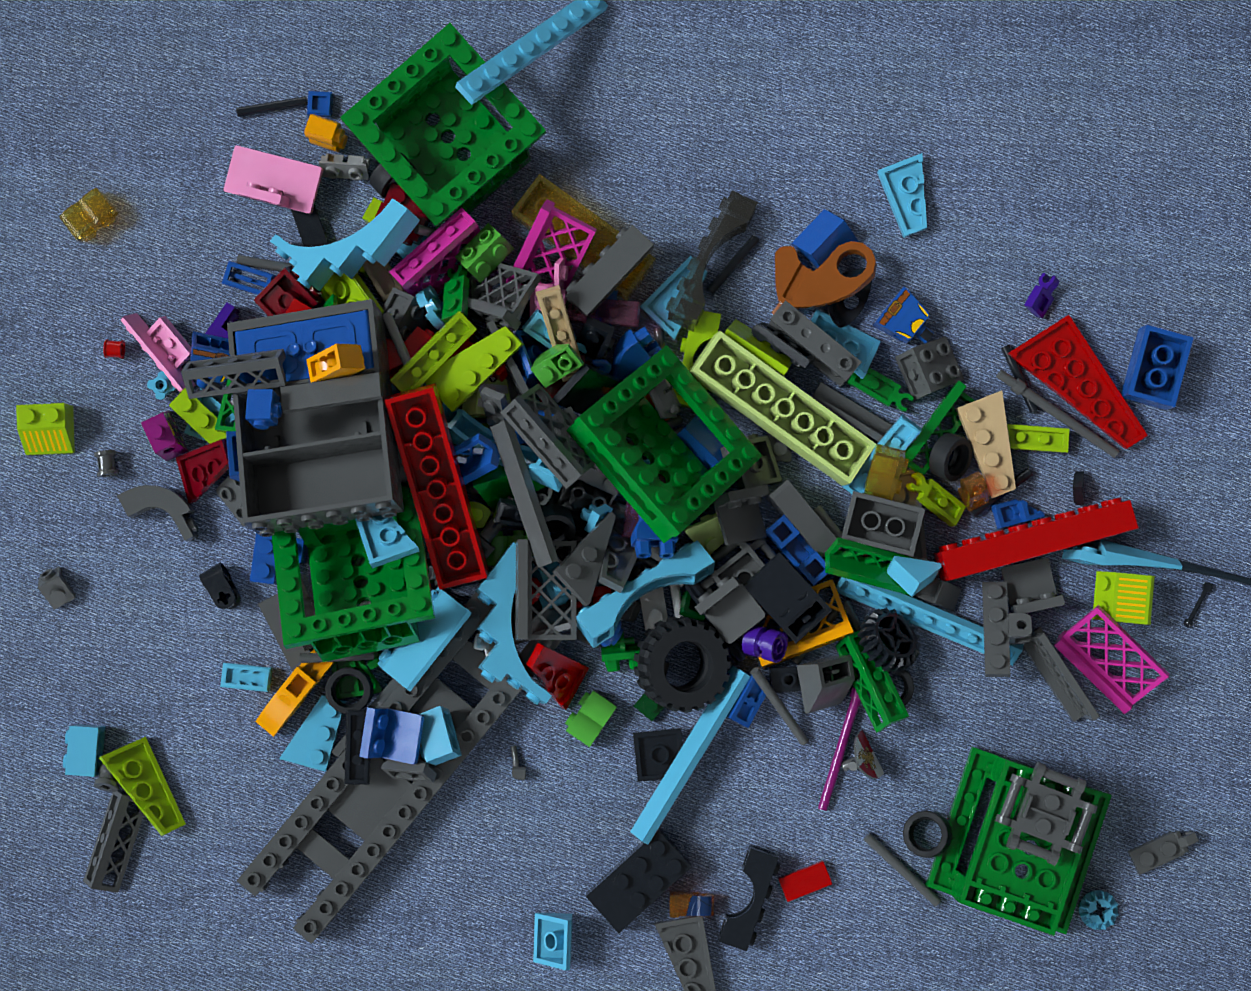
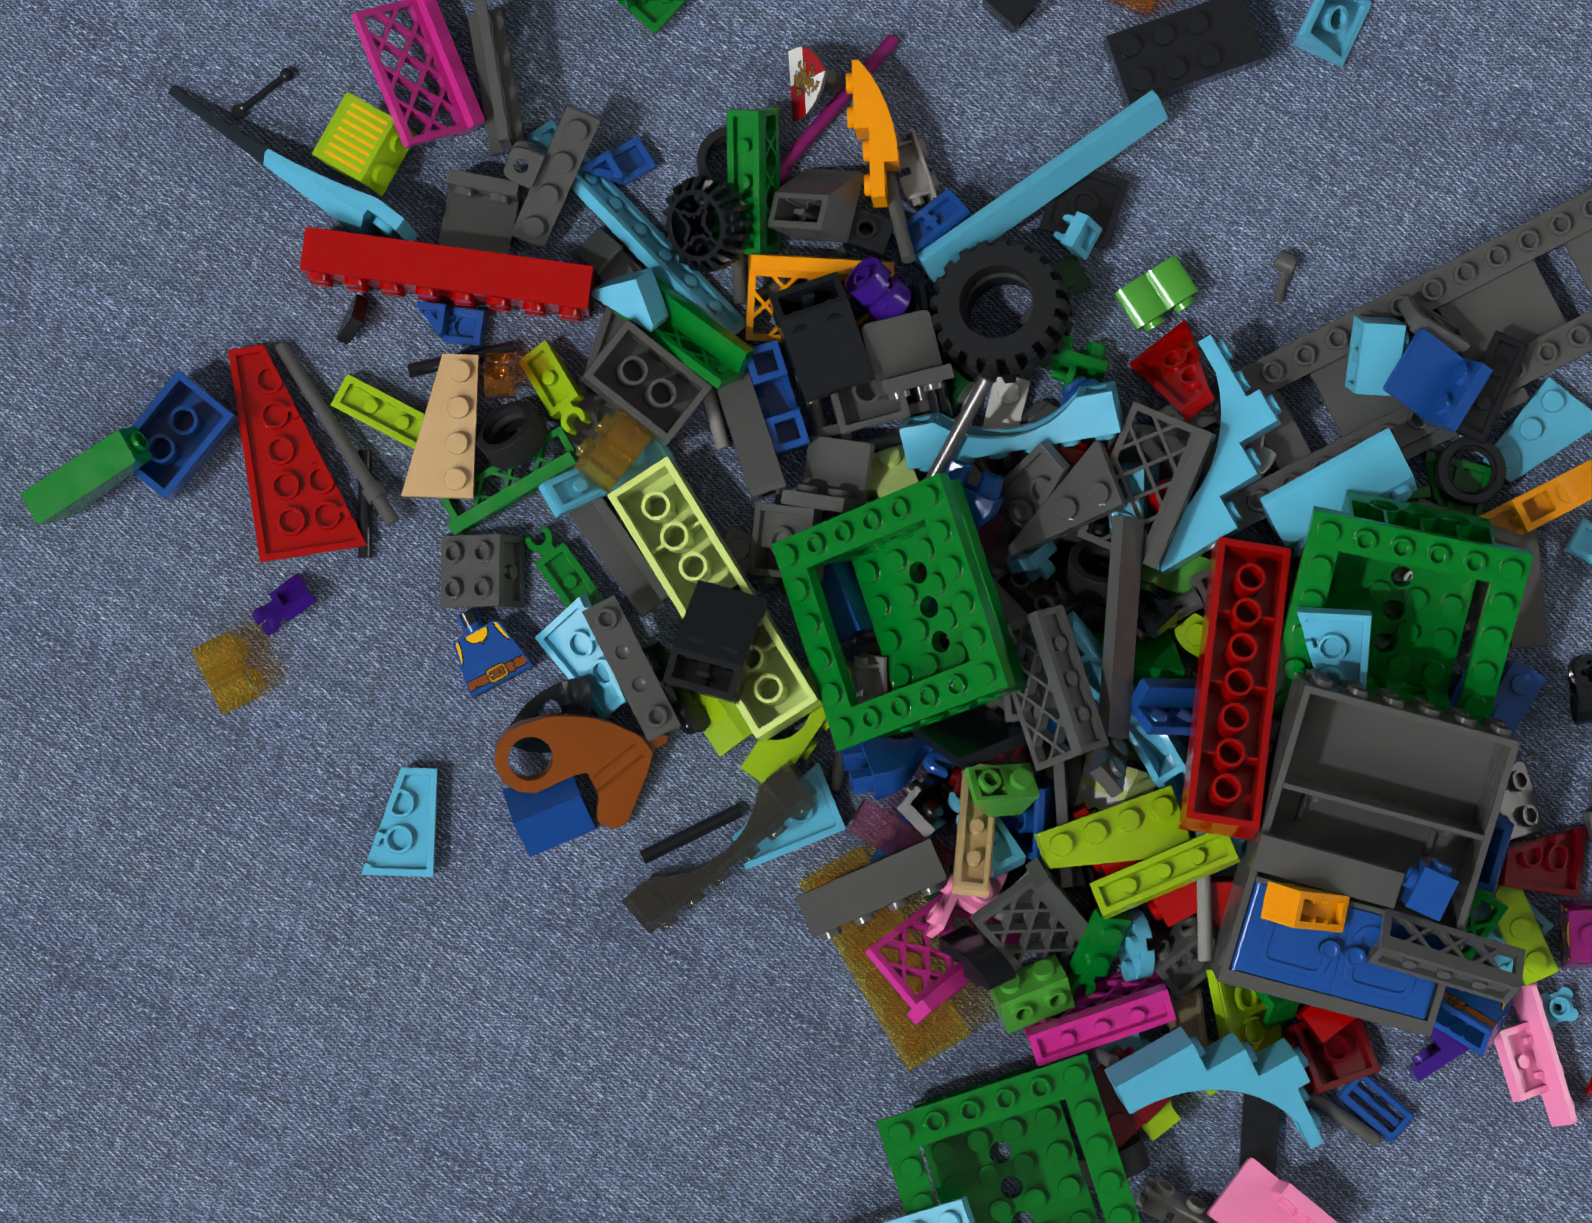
camera: 165 degrees left, 0 degrees up
(523, 256) = (981, 959): none -> black slope
(653, 733) = (1080, 234): none -> medium azure tile
(677, 574) = (960, 426): none -> flat silver bar
(770, 377) = (716, 642): none -> black slope
(779, 739) = (920, 181): none -> light grey hinge
(813, 749) = (872, 122): none -> light orange slope
(956, 656) = (623, 163): none -> blue slope
(1057, 239) = (228, 672): none -> clear yellow brick
(1202, 315) = (87, 476): none -> green slope

